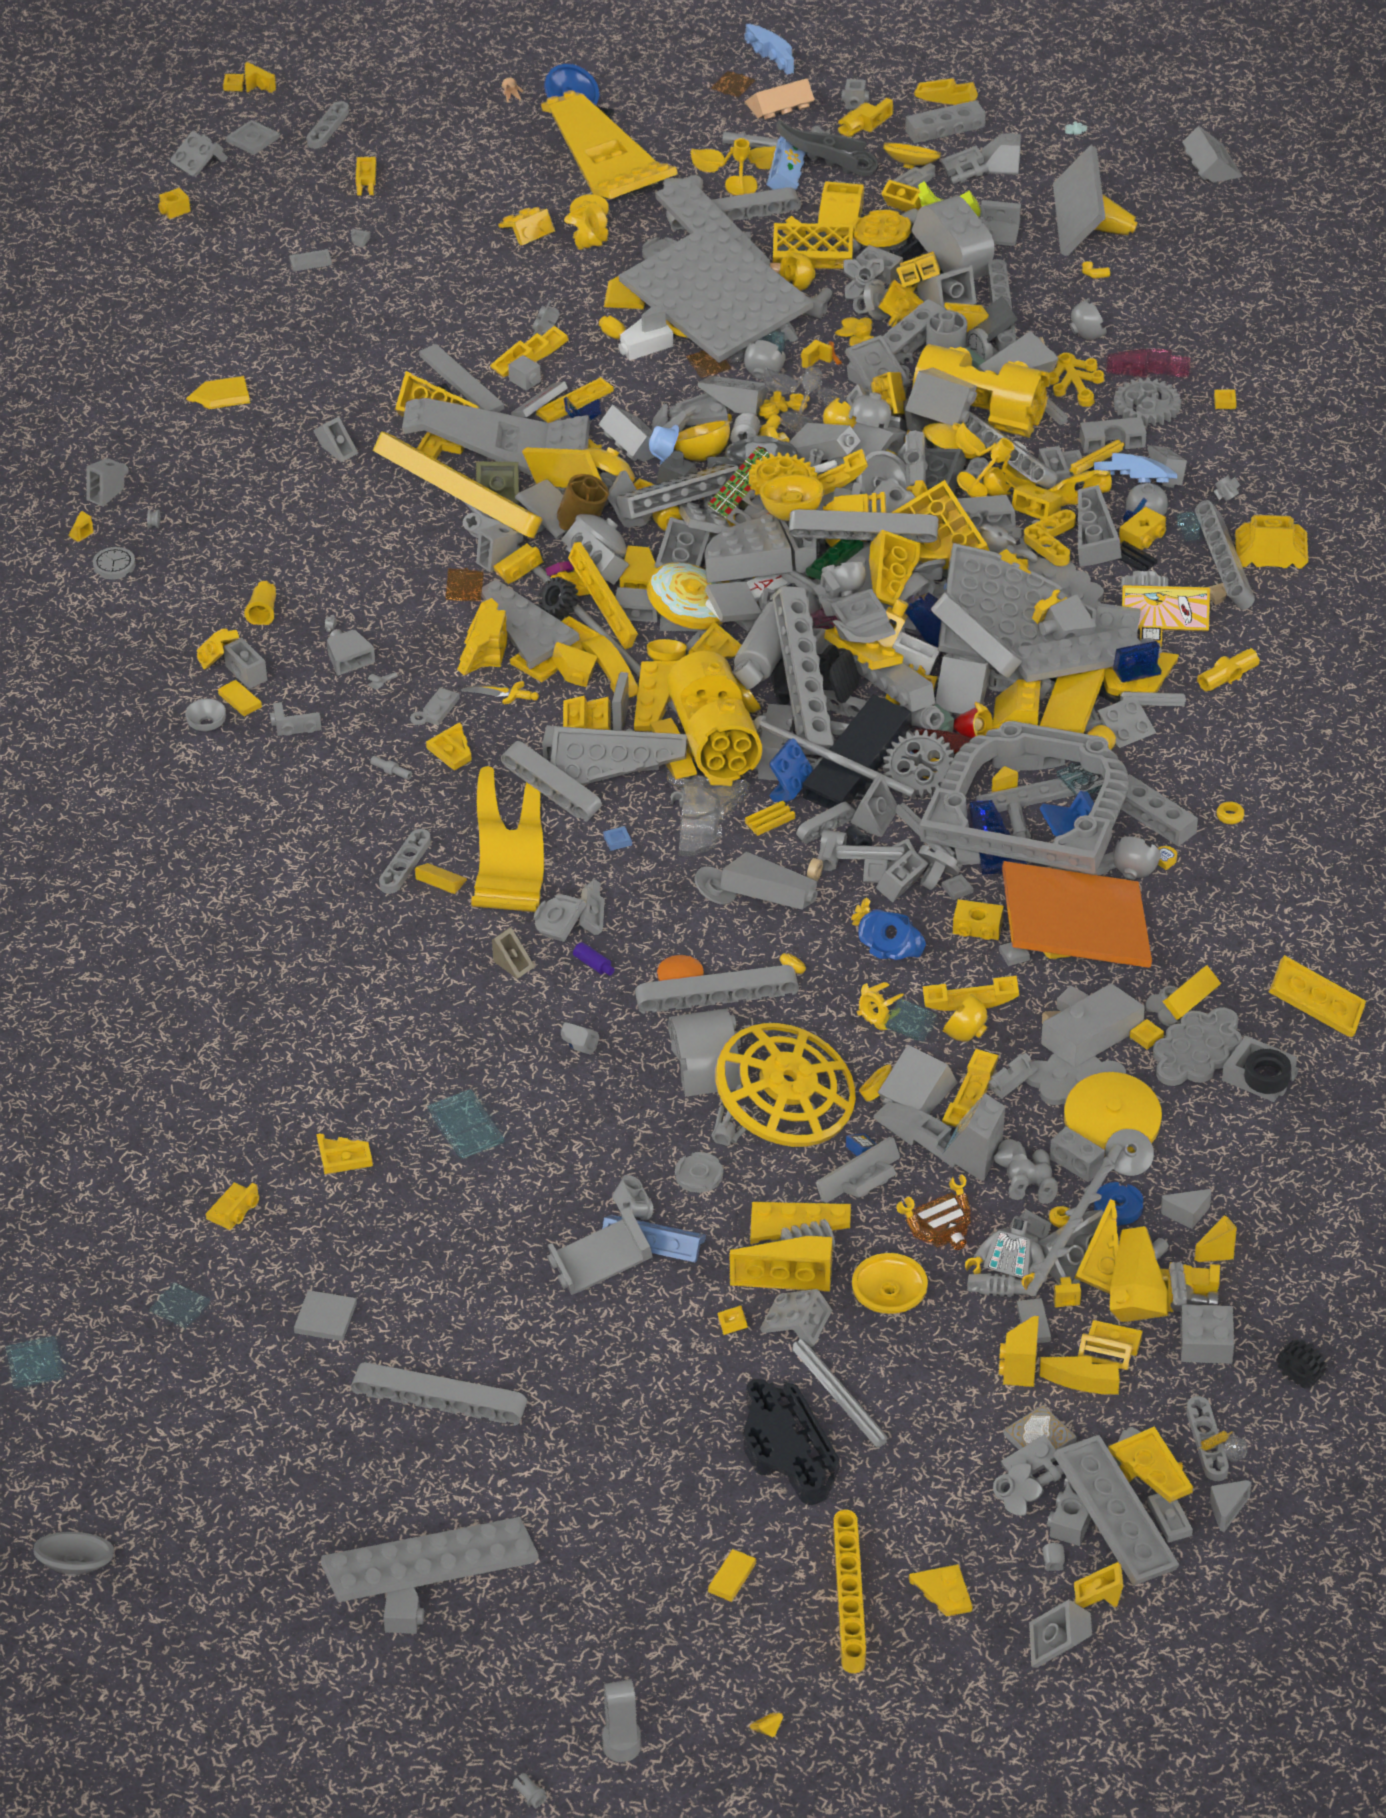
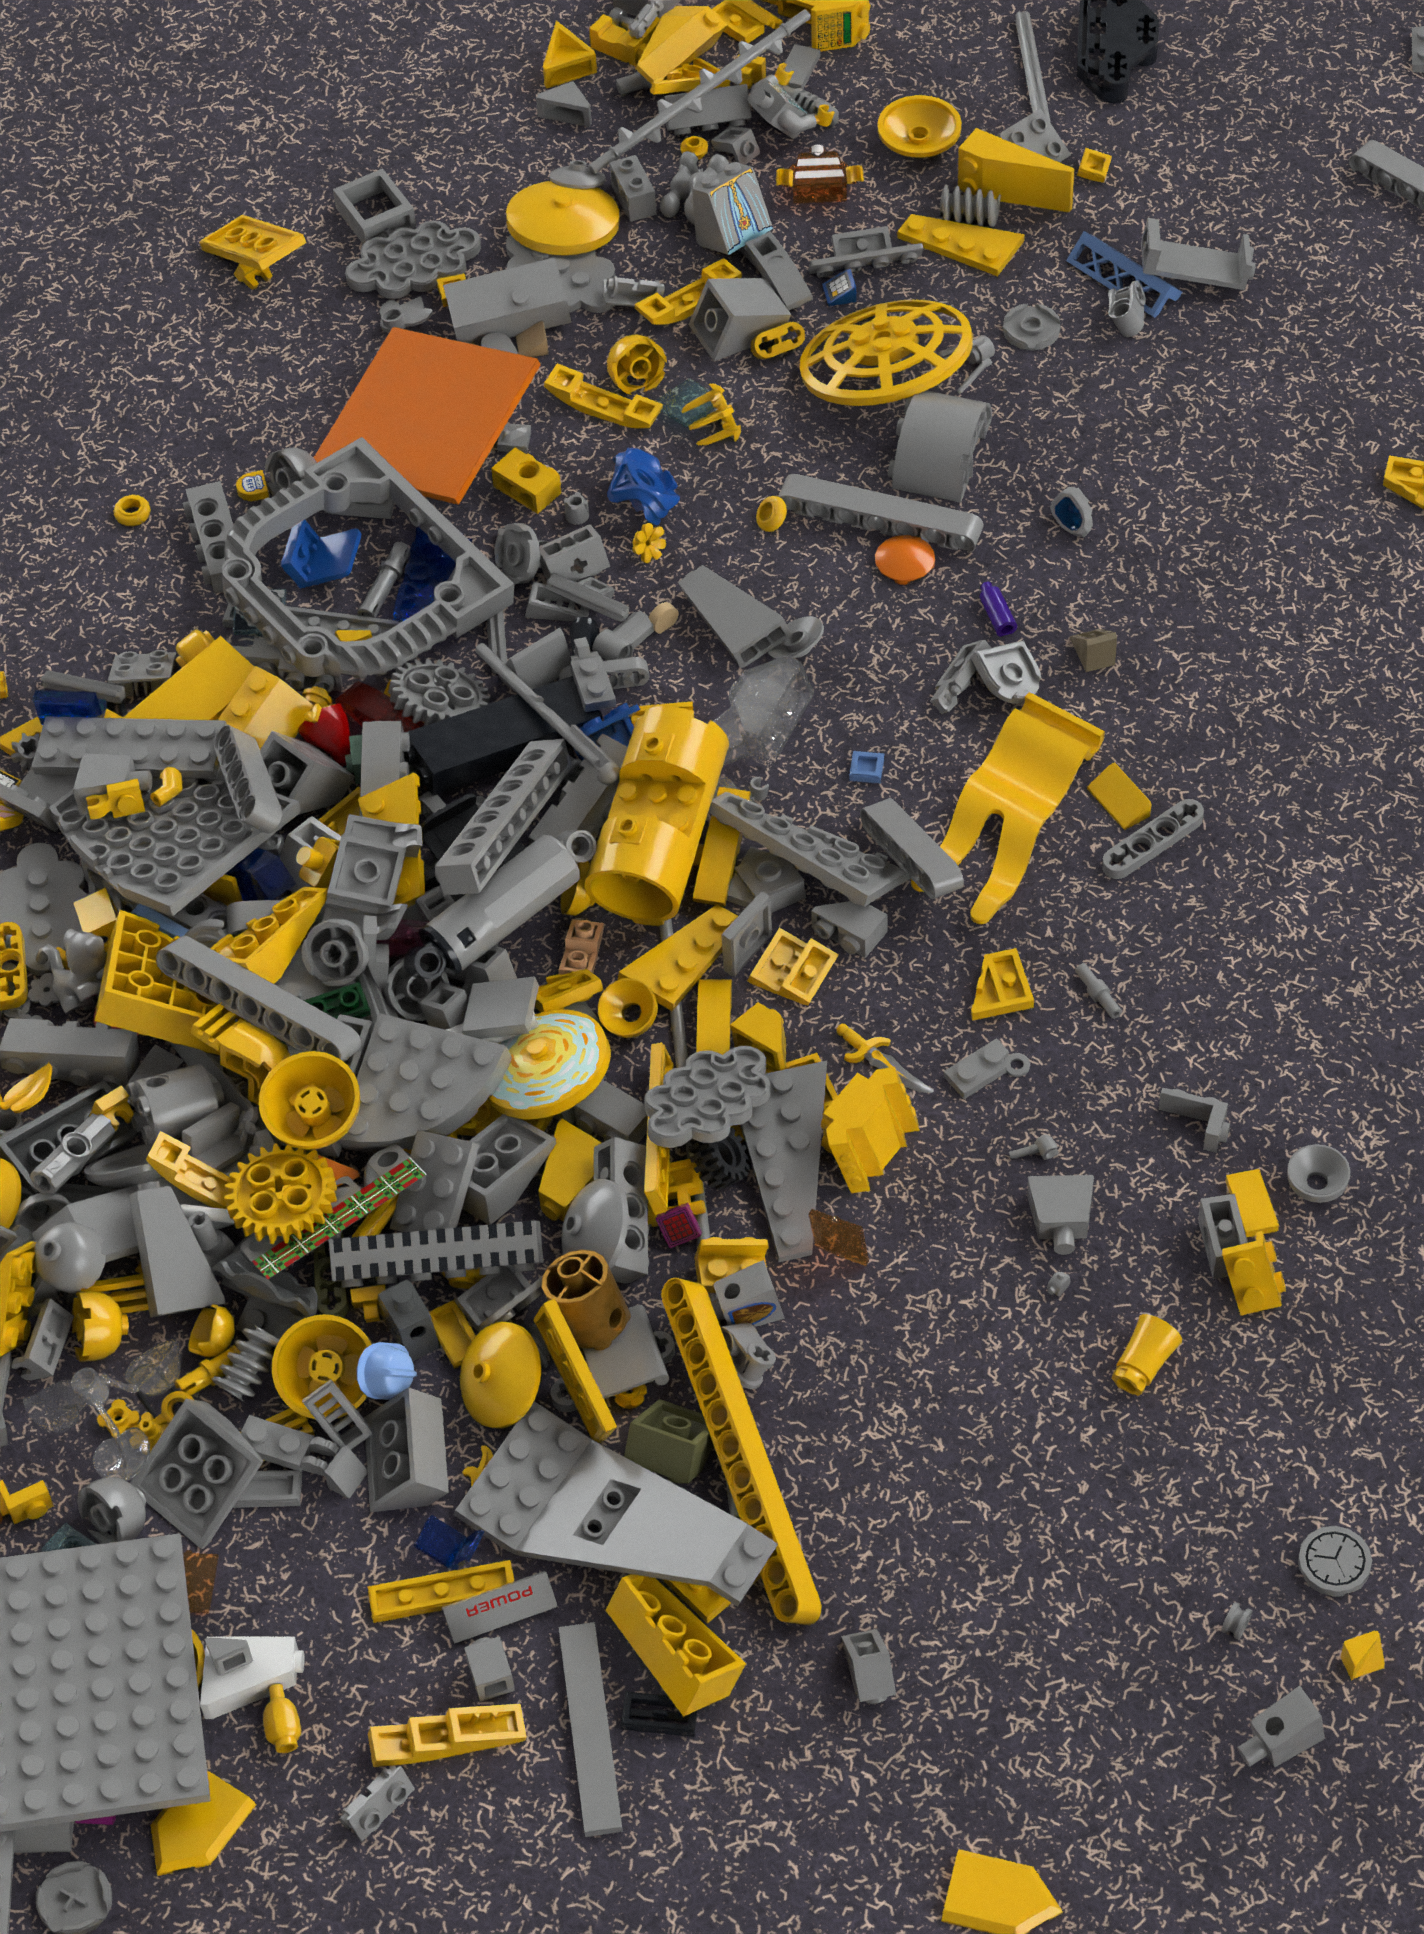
camera: 150 degrees left, 10 degrees up
(465, 1124) = (1258, 469): clear light blue piece -> none
(580, 603) = (707, 1096): none -> light grey plate
(825, 797) = (591, 678): none -> light grey hinge
(929, 918) = (576, 509): none -> light grey hose
(1028, 633) = (170, 786): none -> yellow arm
(1129, 1195) = (632, 123): blue plate -> none
(1191, 992) = (370, 309): yellow tile -> none
(1265, 1084) = (382, 154): black tyre -> none

